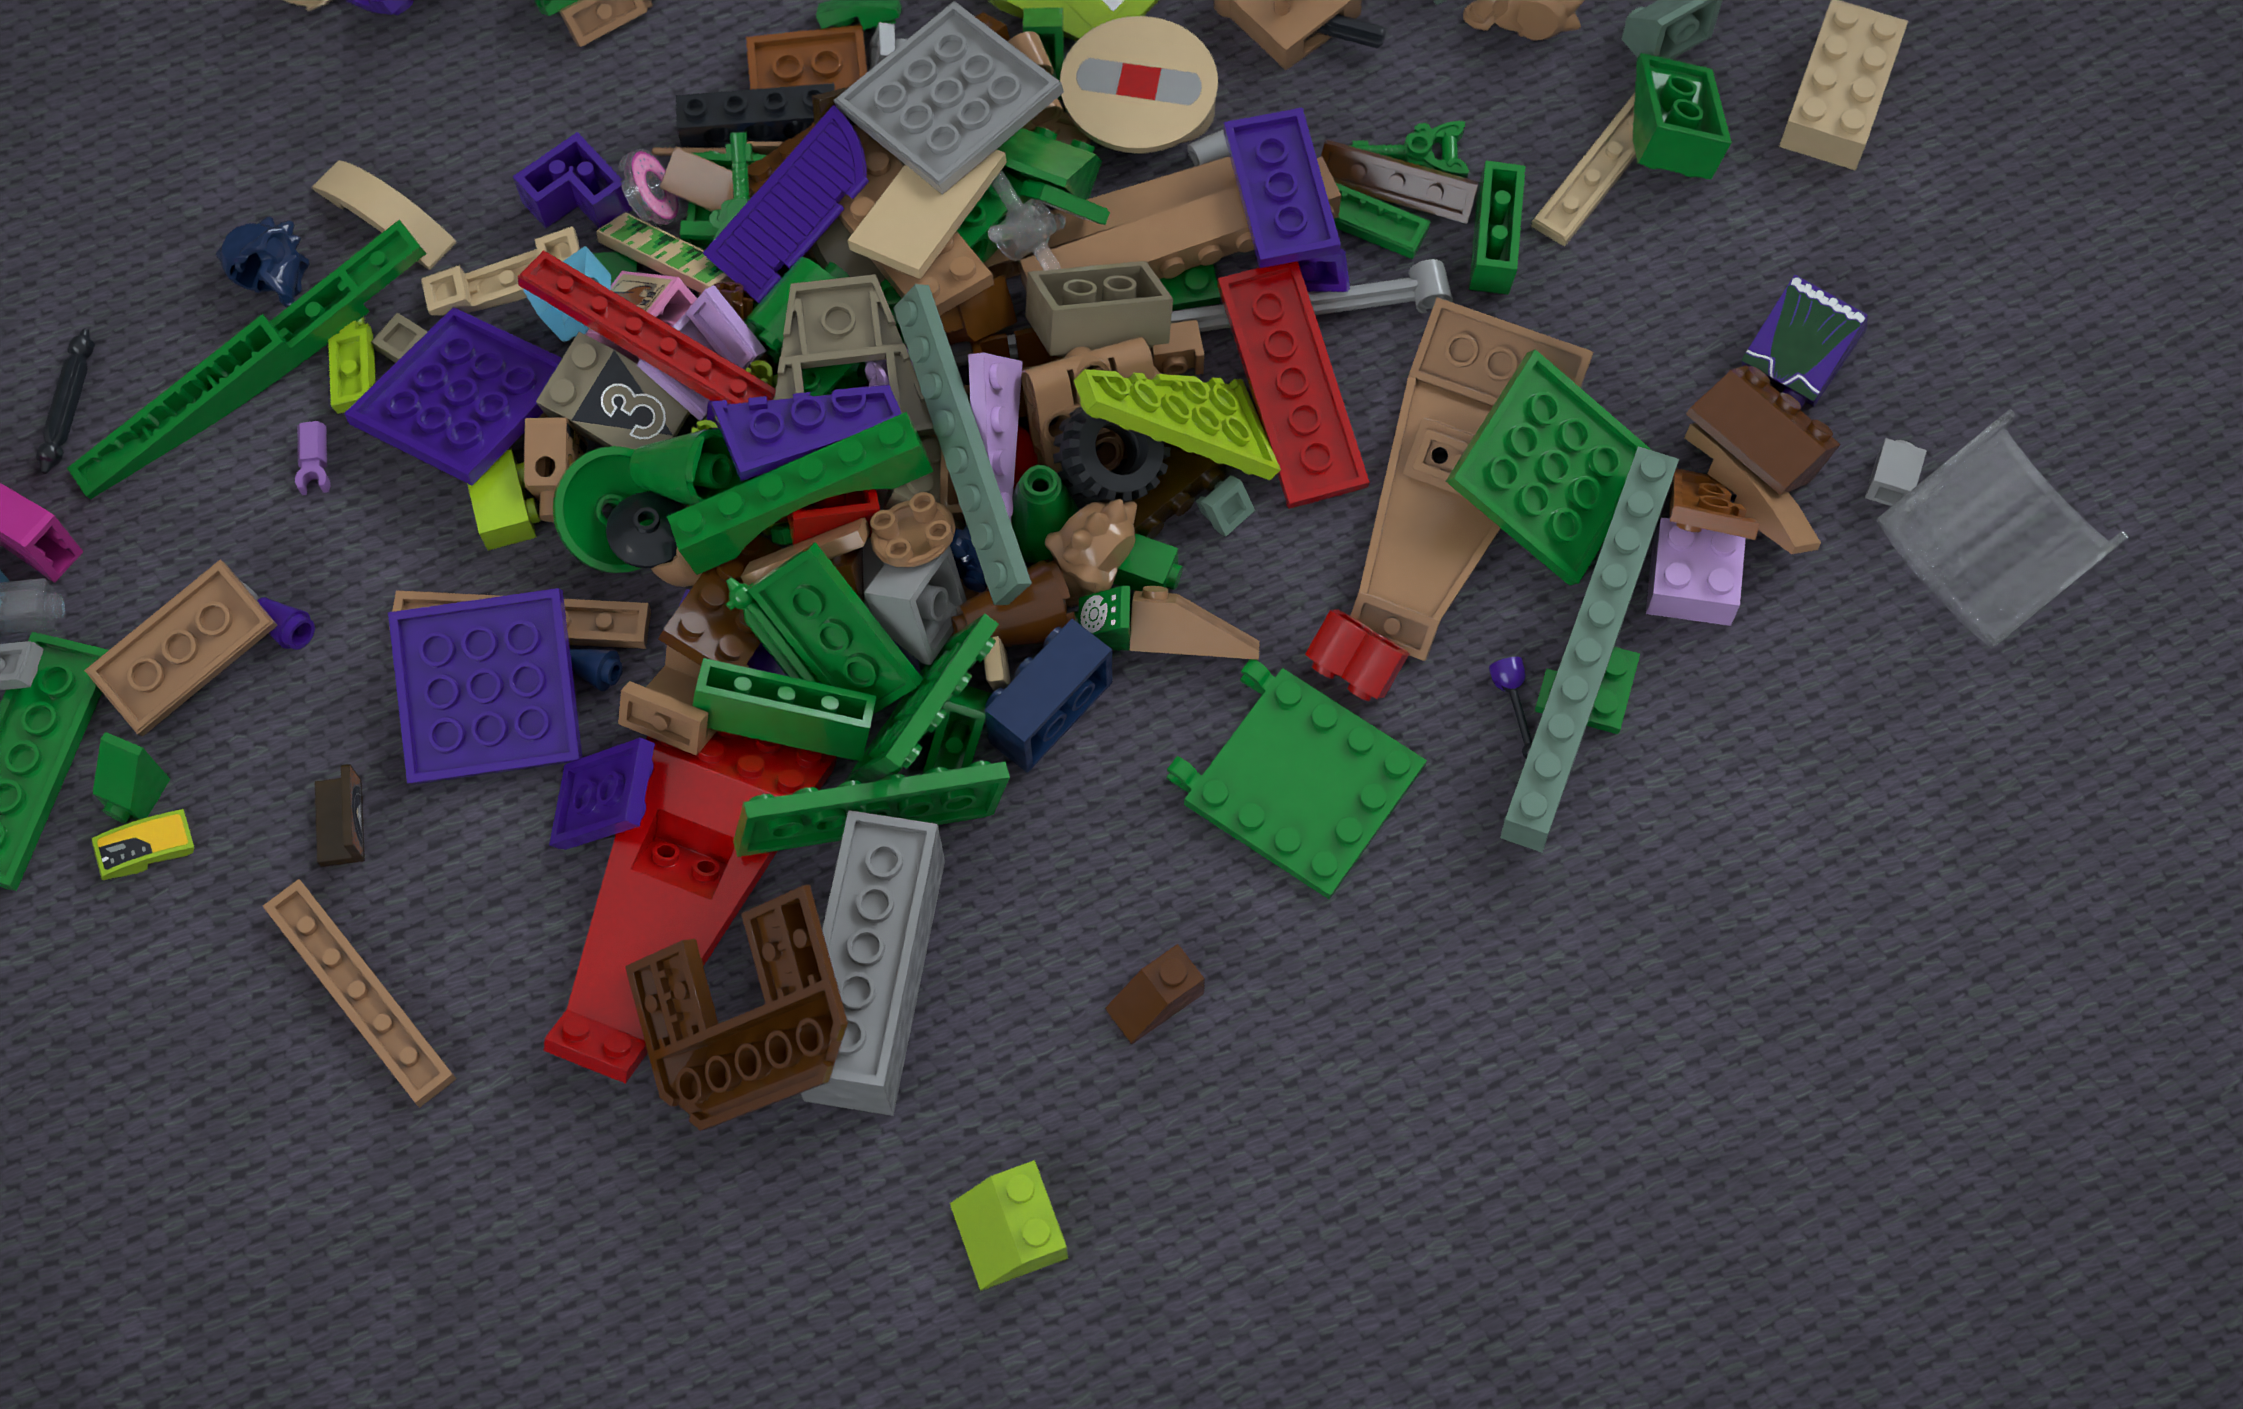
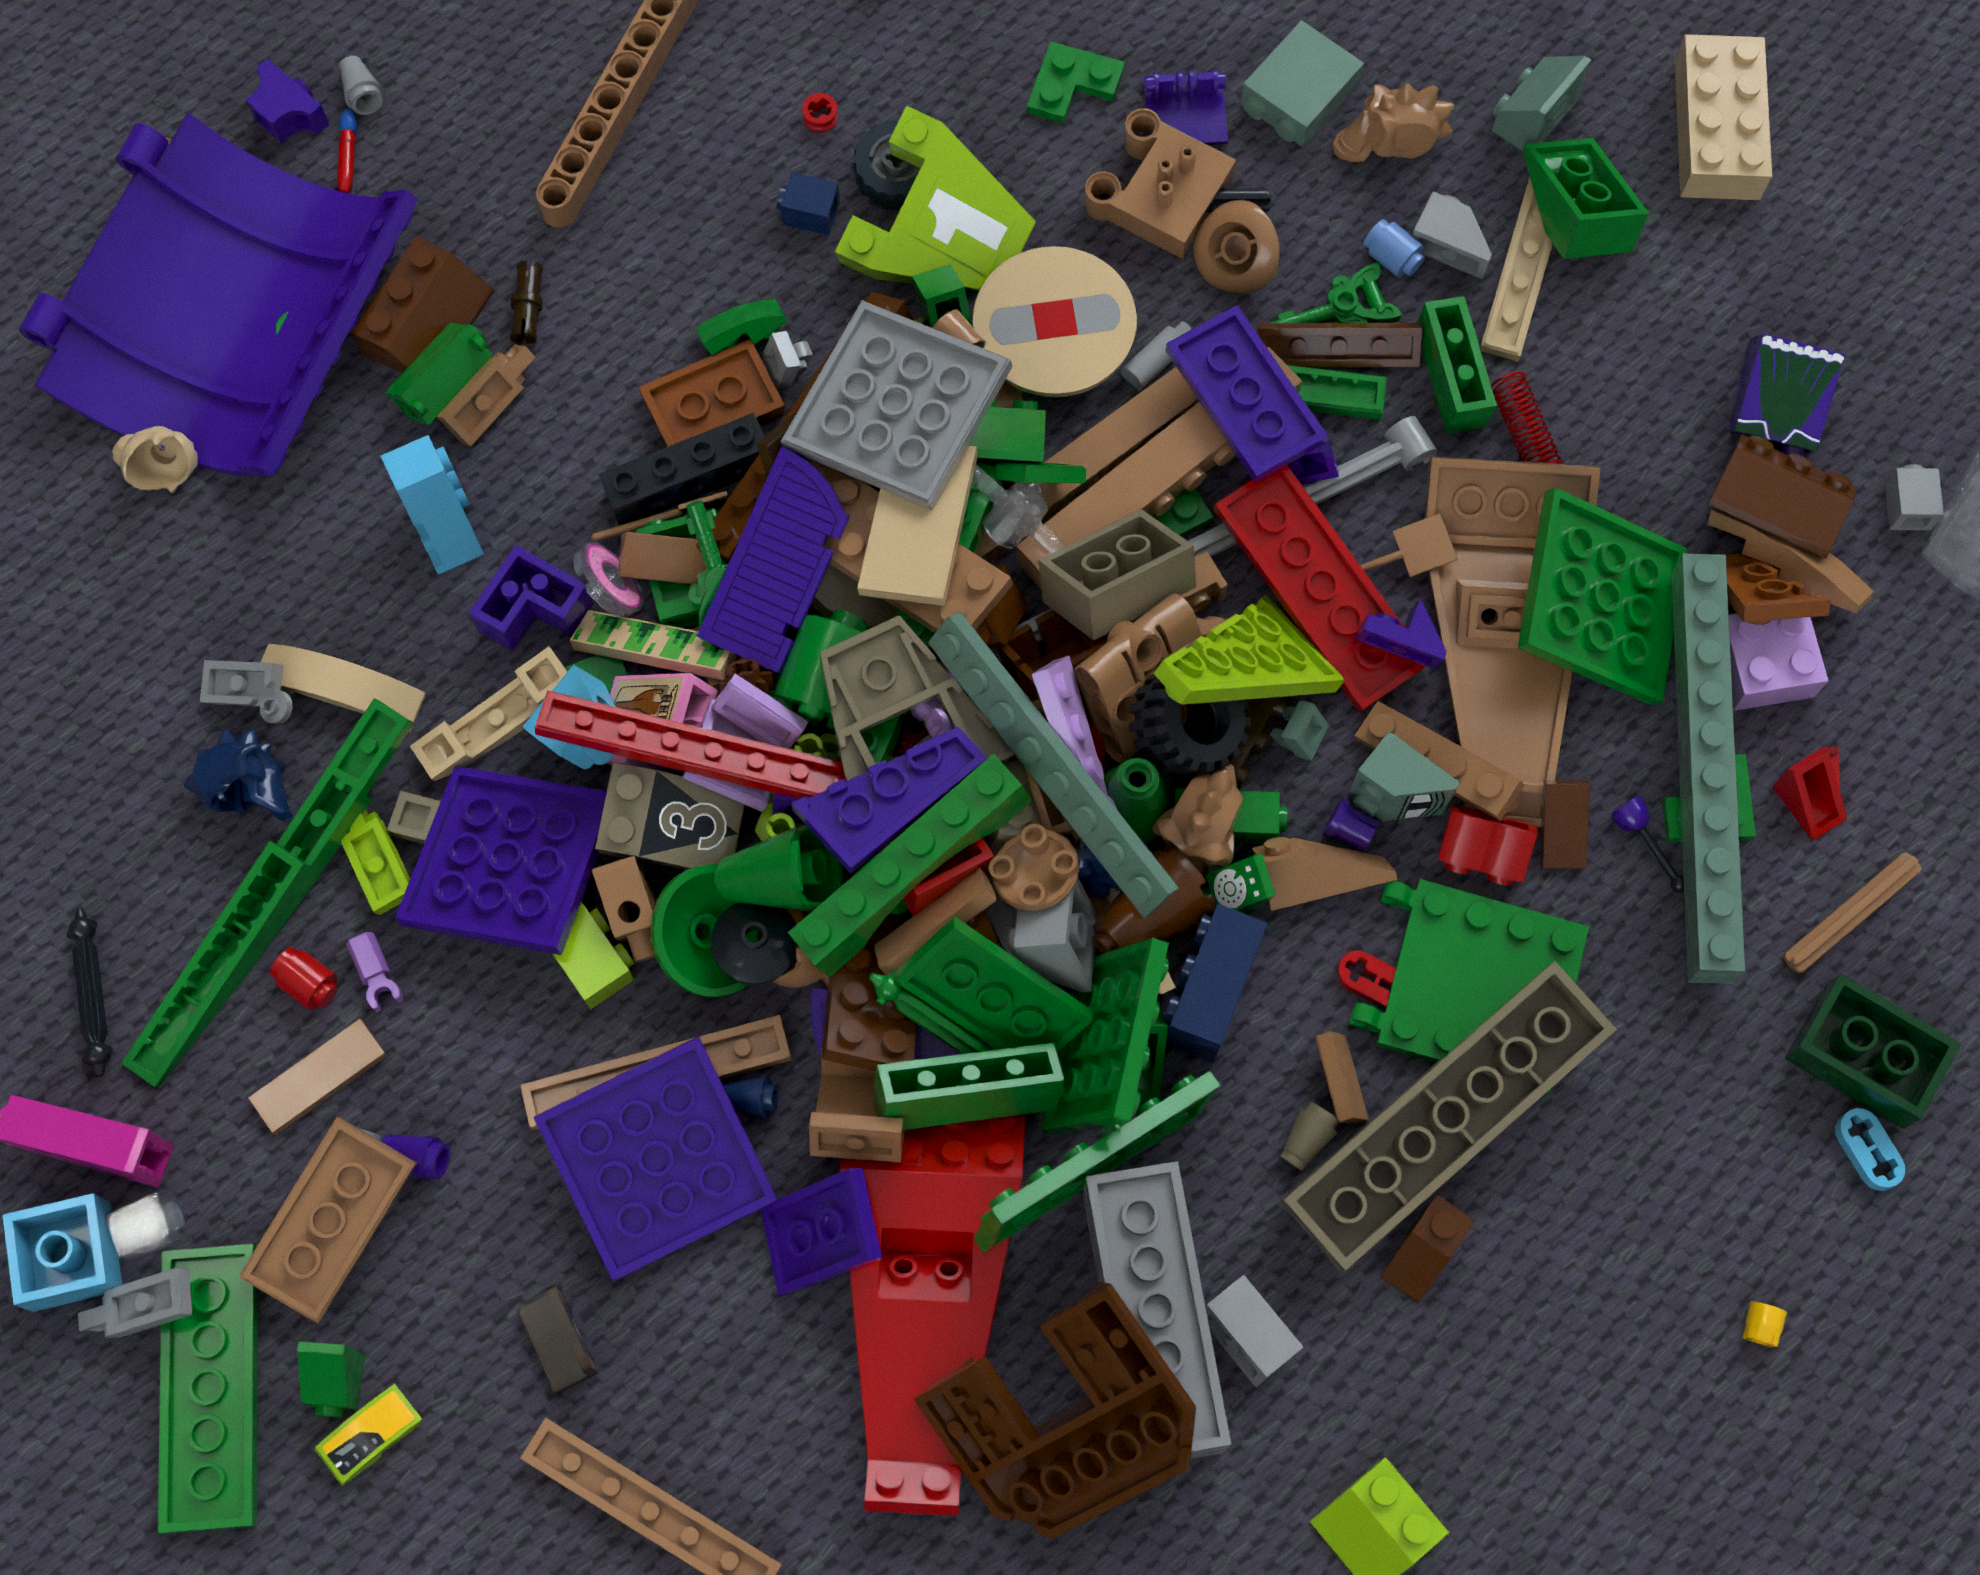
camera: 20 degrees left, 5 degrees up
(227, 531) = (317, 1077): none -> tile
(249, 444) = (304, 978): none -> red brick
(302, 185) = (247, 685): none -> light grey hinge
(522, 74) = (433, 502): none -> medium azure wedge
(960, 1013) = (1250, 1331): none -> light grey hinge
(1087, 861) = (1309, 1135): none -> dark tan cone
(1137, 819) = (1341, 1078): none -> medium nougat tile
(1192, 748) = (1363, 987): none -> red beam
(1216, 877) = (1447, 1116): none -> dark tan brick
(1236, 601) = (1350, 825): none -> dark purple bush
(1292, 573) = (1401, 783): none -> sand green slope
(1334, 70) = (1237, 248): none -> medium nougat hat
(1340, 567) = (1481, 782): none -> medium nougat plate
(1354, 453) = (1415, 641): none -> dark purple slope
(1402, 377) = (1421, 545): none -> medium nougat piece
(1438, 660) = (1565, 823): none -> reddish brown tile
(1451, 1169) = (1764, 1324): none -> yellow hose
(1484, 113) = (1394, 248): none -> medium blue brick
(1540, 115) = (1452, 235): none -> light grey slope
(1551, 266) = (1514, 386): none -> red piece
(1629, 1043) = (1878, 1143): none -> medium azure beam
(1652, 953) = (1873, 1051): none -> dark green brick
(1688, 828) = (1852, 913): none -> medium nougat axle
(1694, 703) = (1813, 792): none -> red slope

